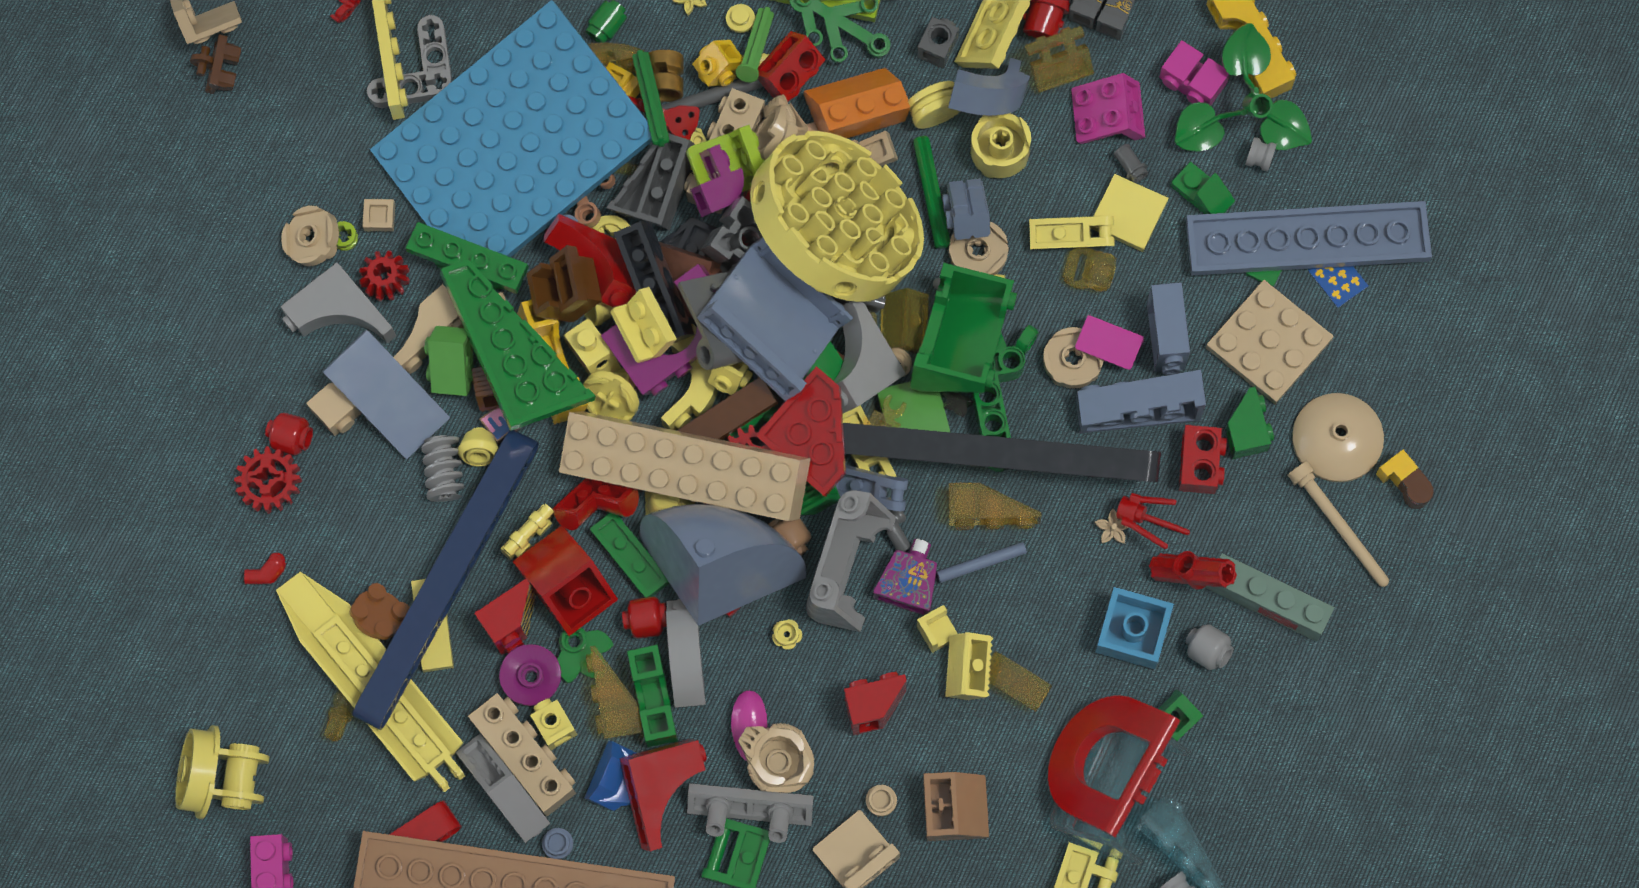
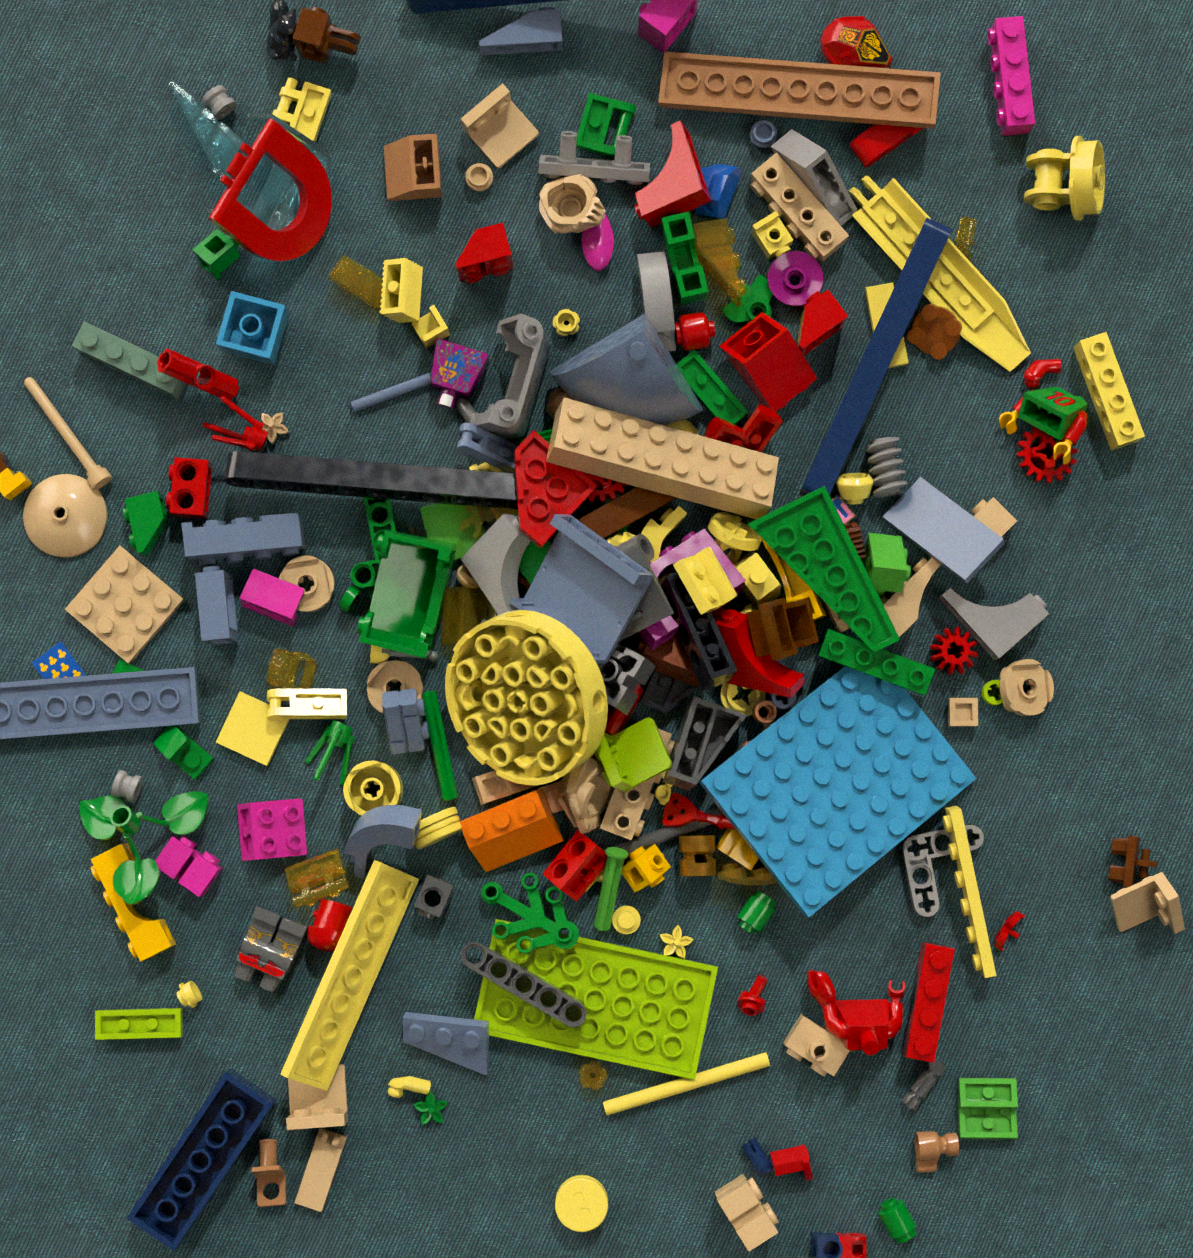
camera: 175 degrees right, 10 degrees up
(194, 543) = (1108, 391): none -> light yellow brick
(256, 514) = (1052, 412): none -> green torso
(289, 433) = (1030, 495): red head -> none
(519, 540) = (800, 409): light yellow plate -> none
(650, 98) = (708, 820): green axle -> none
(723, 184) = (636, 726): magenta brick -> none
(980, 505) = (394, 441): clear yellow slope -> none
(1038, 202) = (336, 735): none -> green plant
(1135, 169) = (250, 776): dark grey pin -> none
(1209, 647) = (186, 315): light grey head -> none

